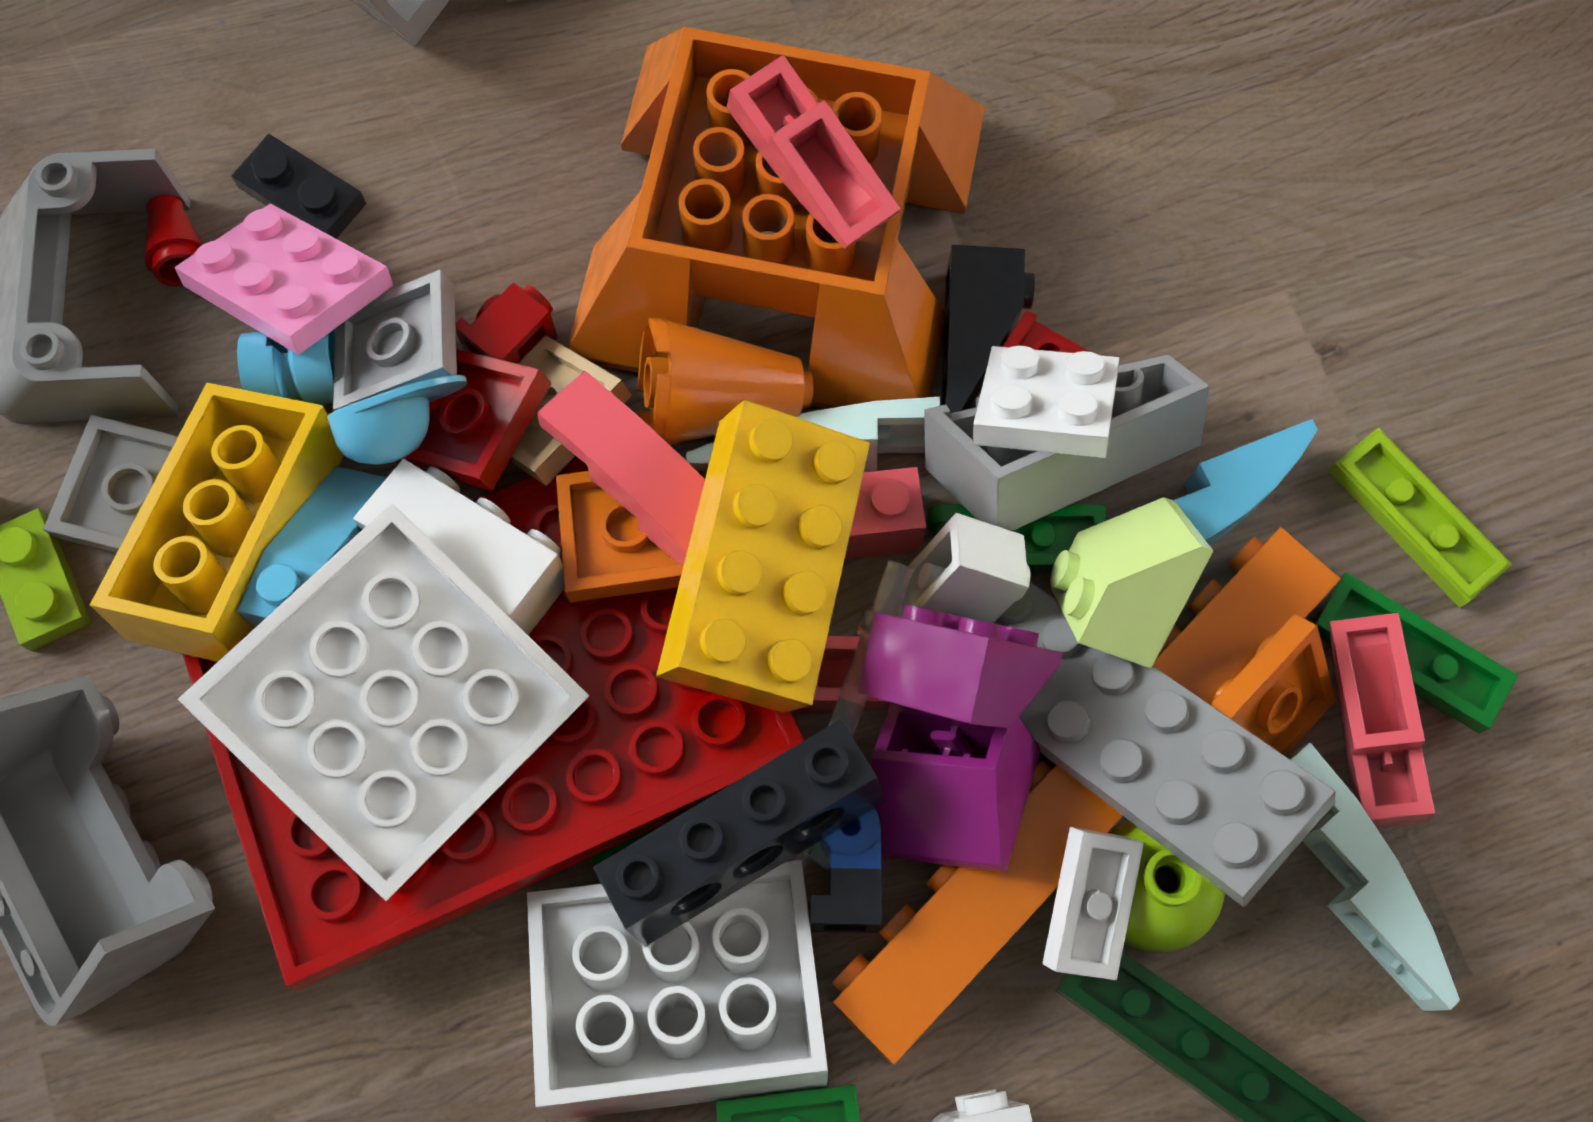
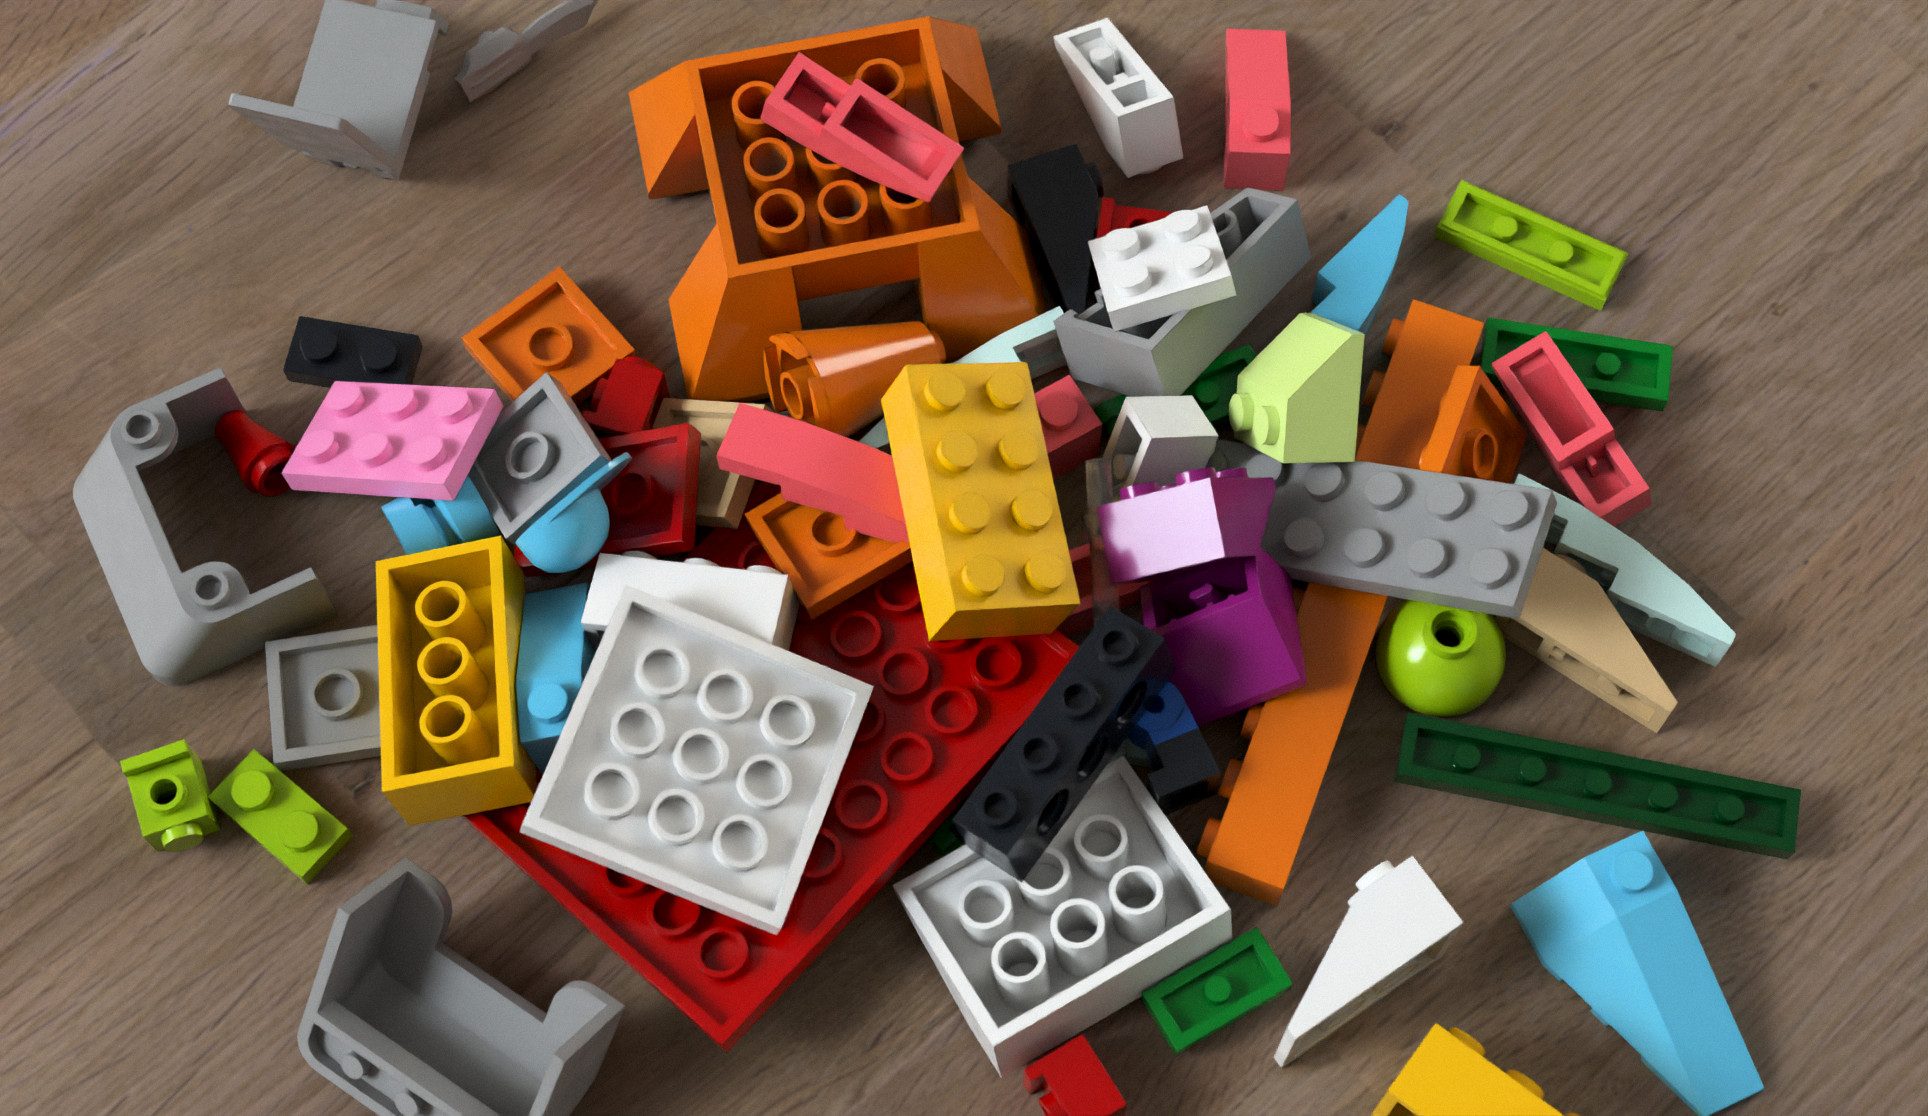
camera: 20 degrees left, 5 degrees down
(473, 239) = (552, 332): none -> orange plate
(1089, 224) = (1122, 98): none -> white slope
(1093, 903) = (1393, 681): white plate -> none
(1211, 284) = (1256, 110): none -> coral slope
(1308, 936) = (1582, 636): none -> tan slope

